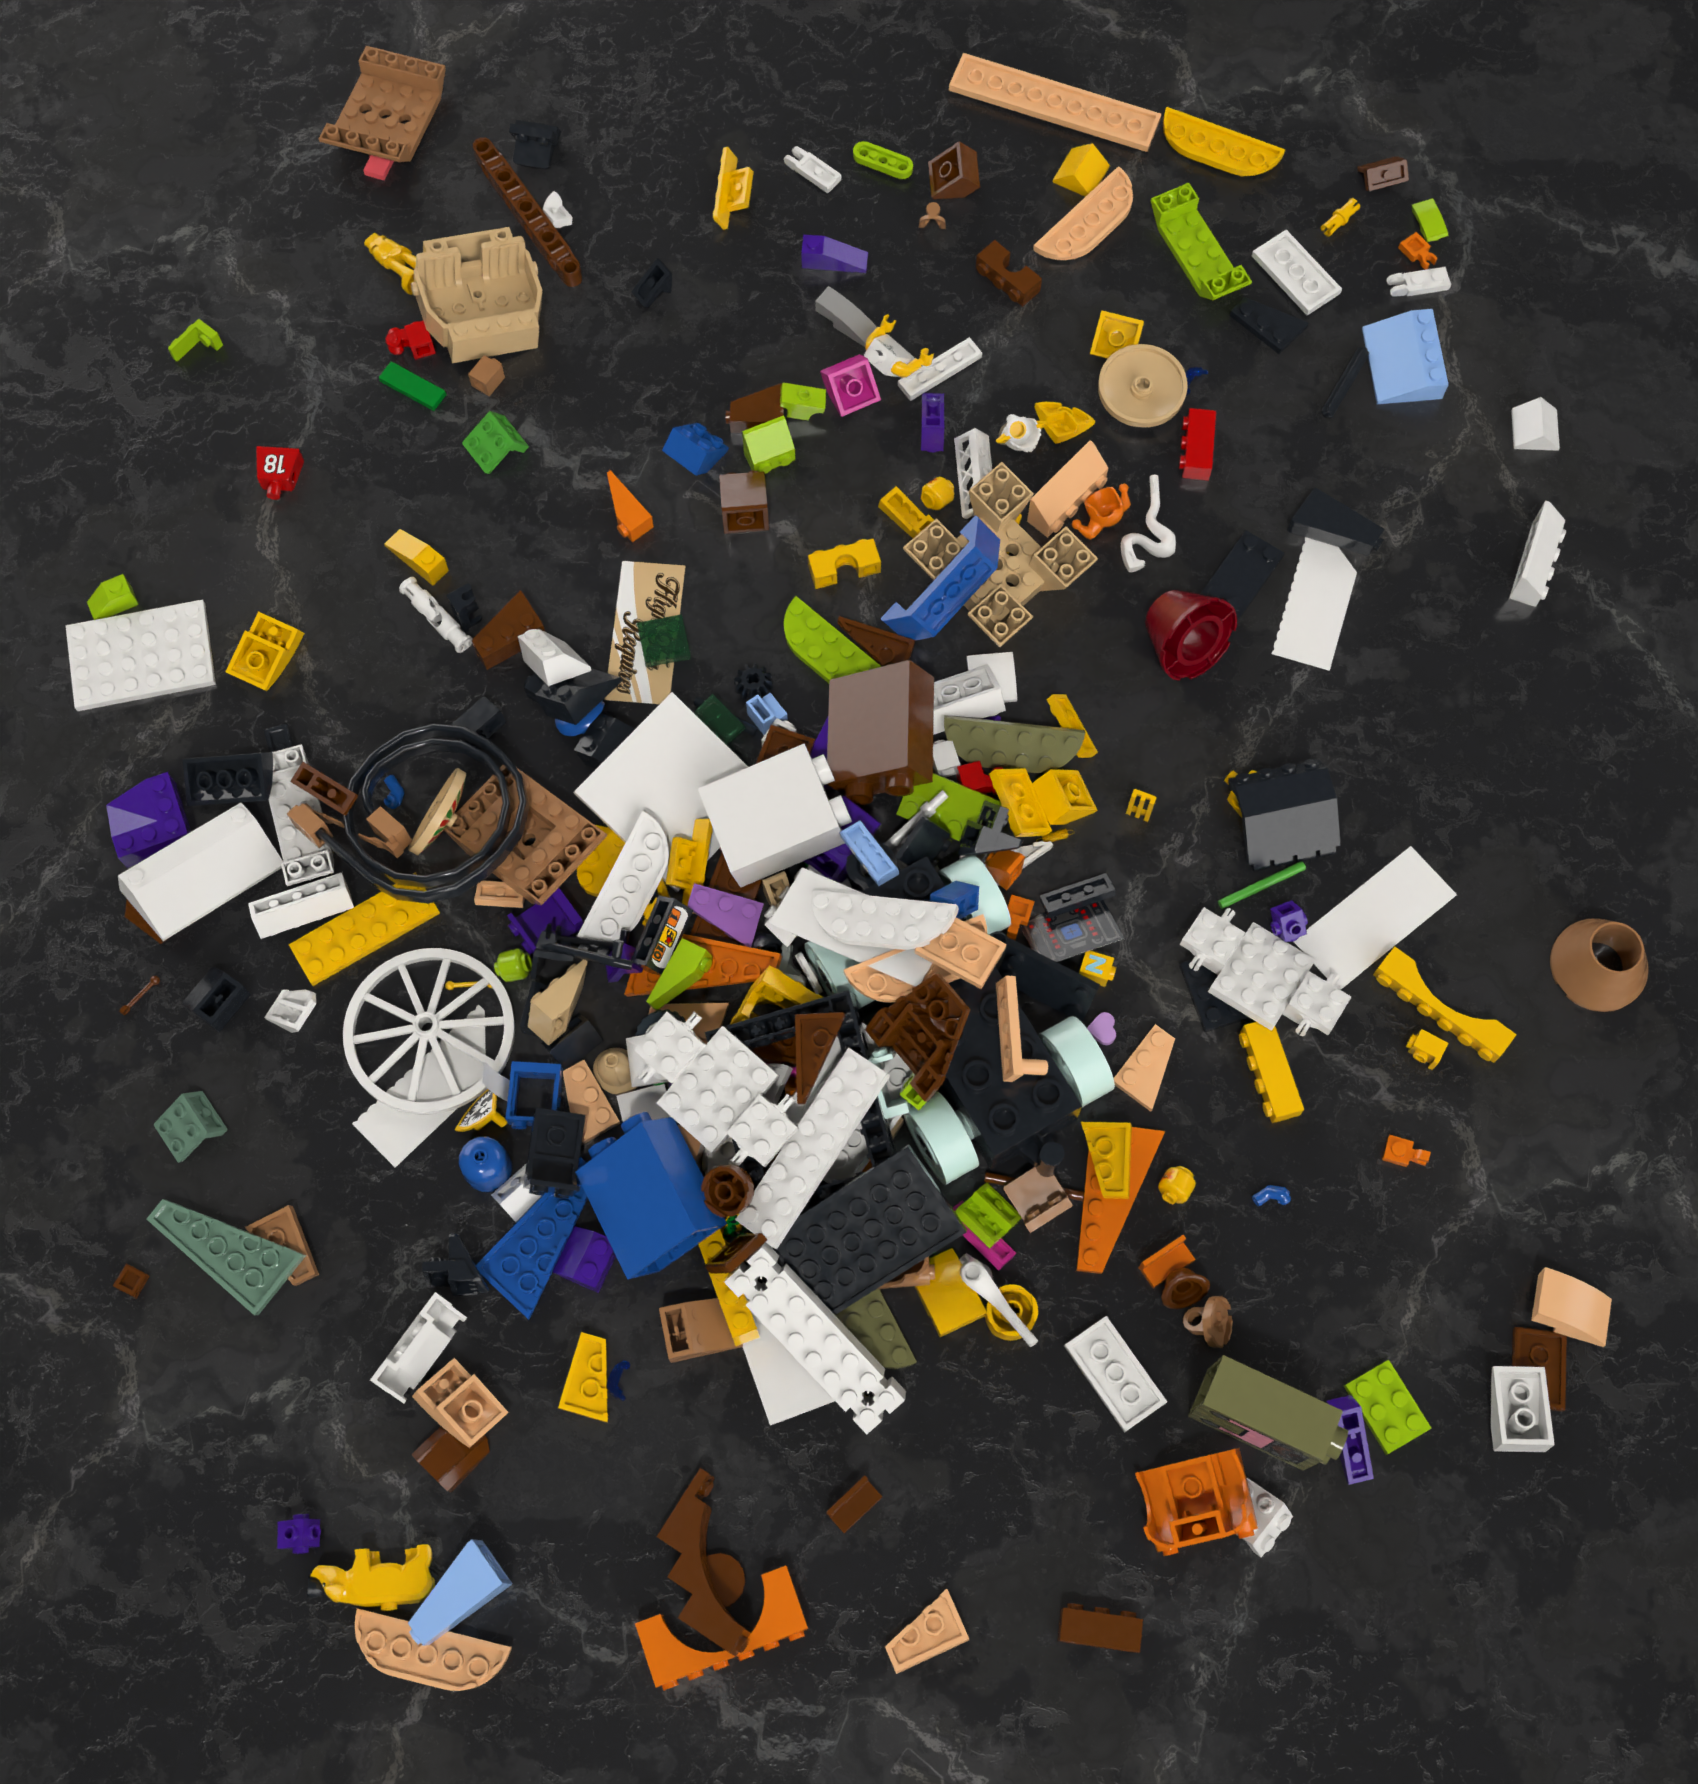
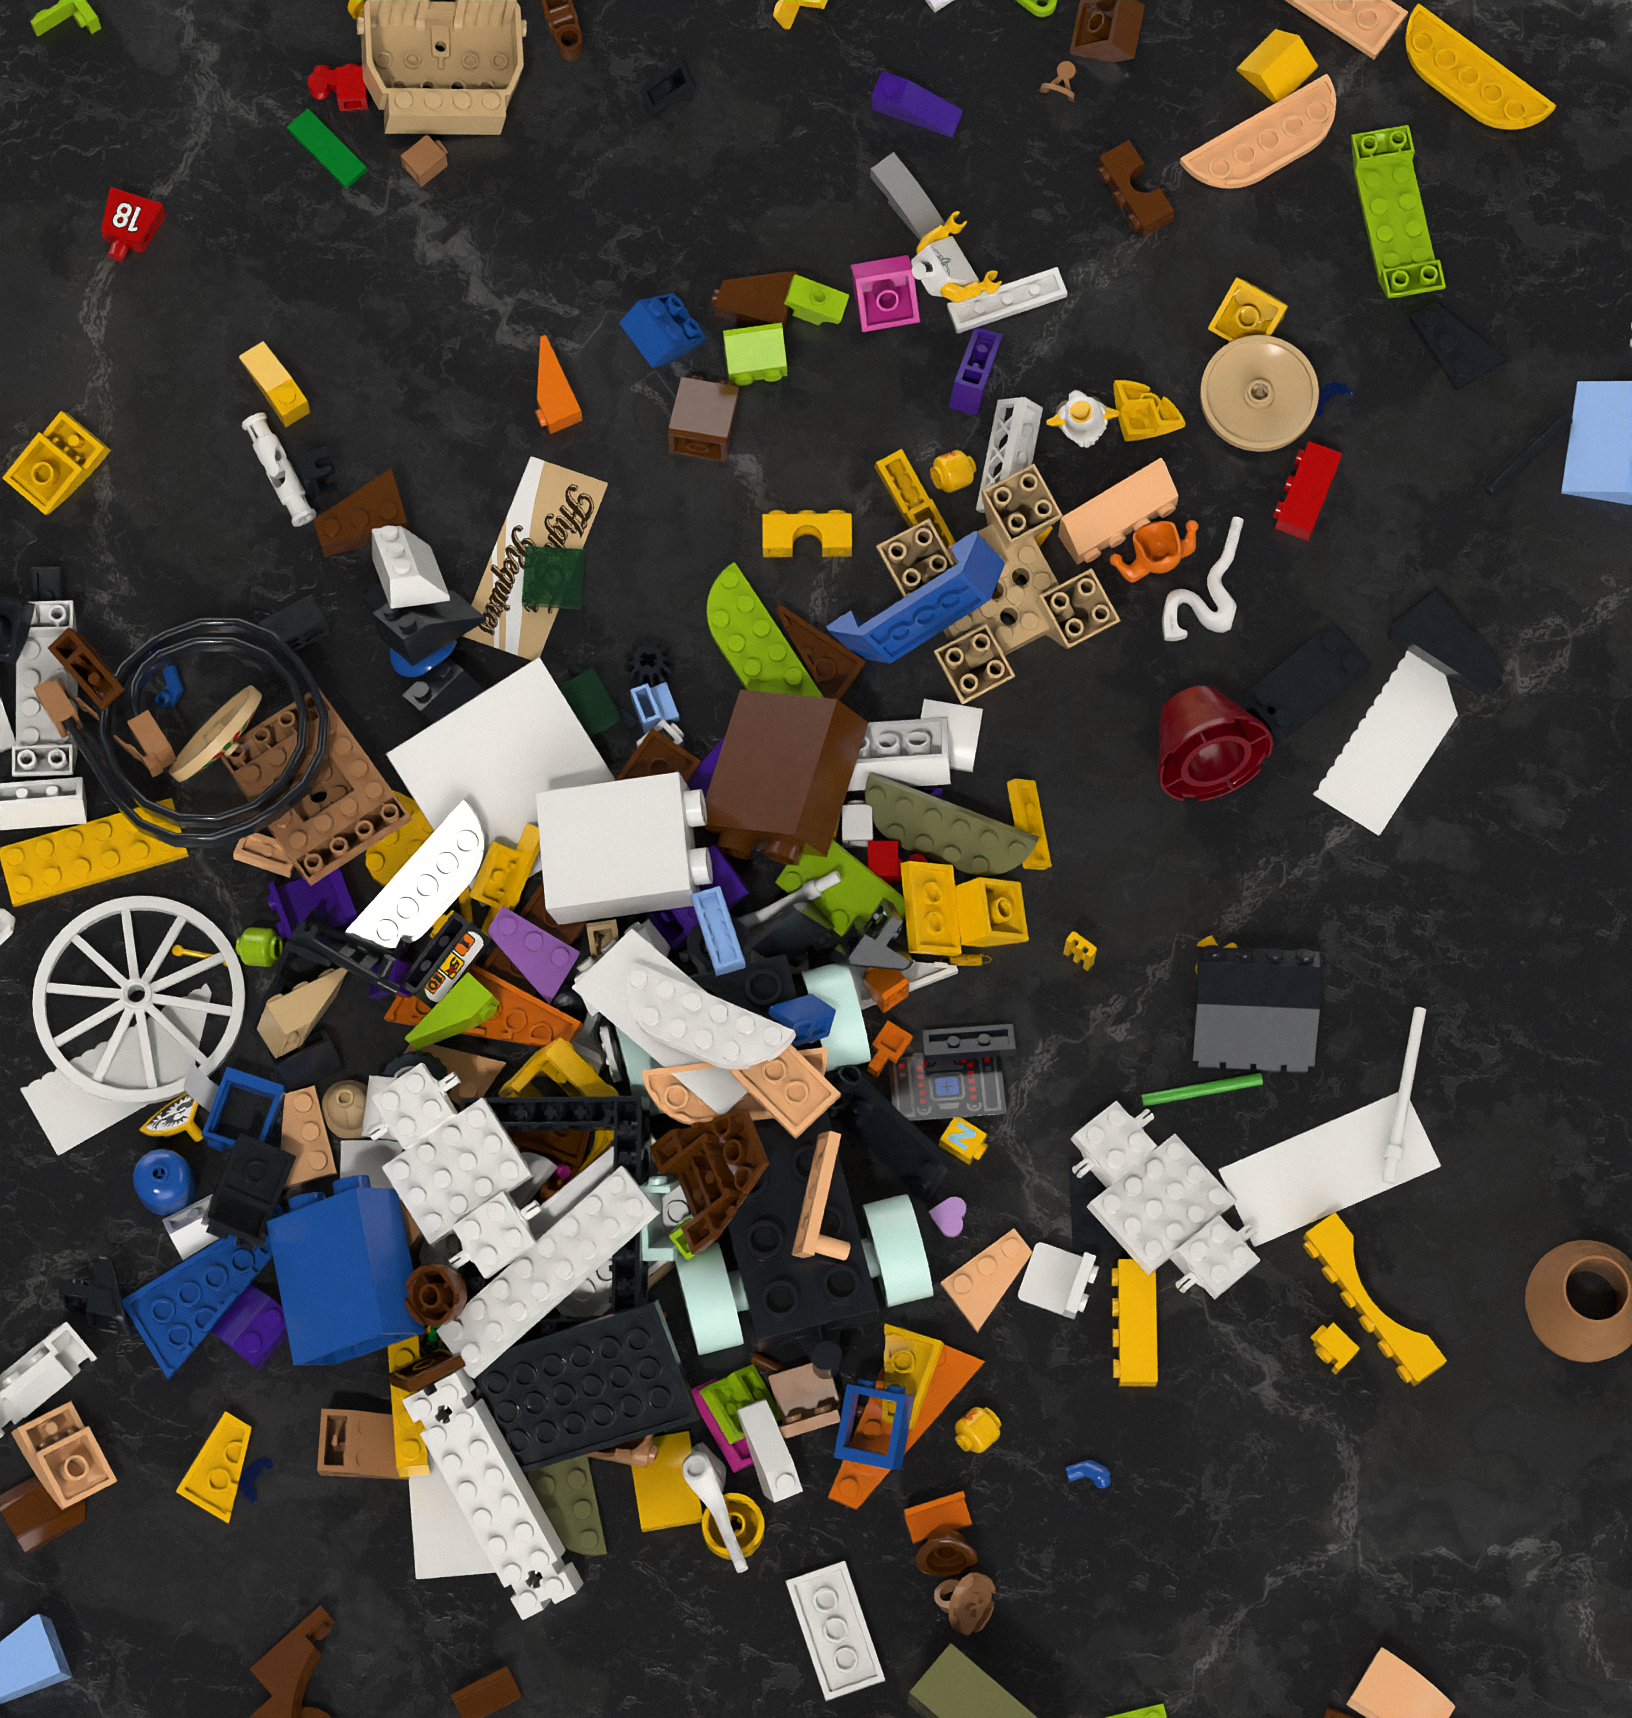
camera: 15 degrees right, 5 degrees up
(493, 440) = (410, 253): bright green bracket -> none
(814, 1039) = (582, 1147): reddish brown wing -> none
(1022, 1246) = (769, 1451): none -> white slope
(1100, 1228) = (894, 1458): none -> blue window
(1202, 1054) = (1057, 1280): none -> white bracket
(1288, 921) = (1216, 1145): dark purple brick -> none
(1296, 272) = (1514, 284): white plate -> none
(1340, 217) = (1598, 220): yellow pin -> none
(1400, 1152) = (1262, 1462): orange plate -> none
(1419, 892) = (1394, 1151): none -> white bar

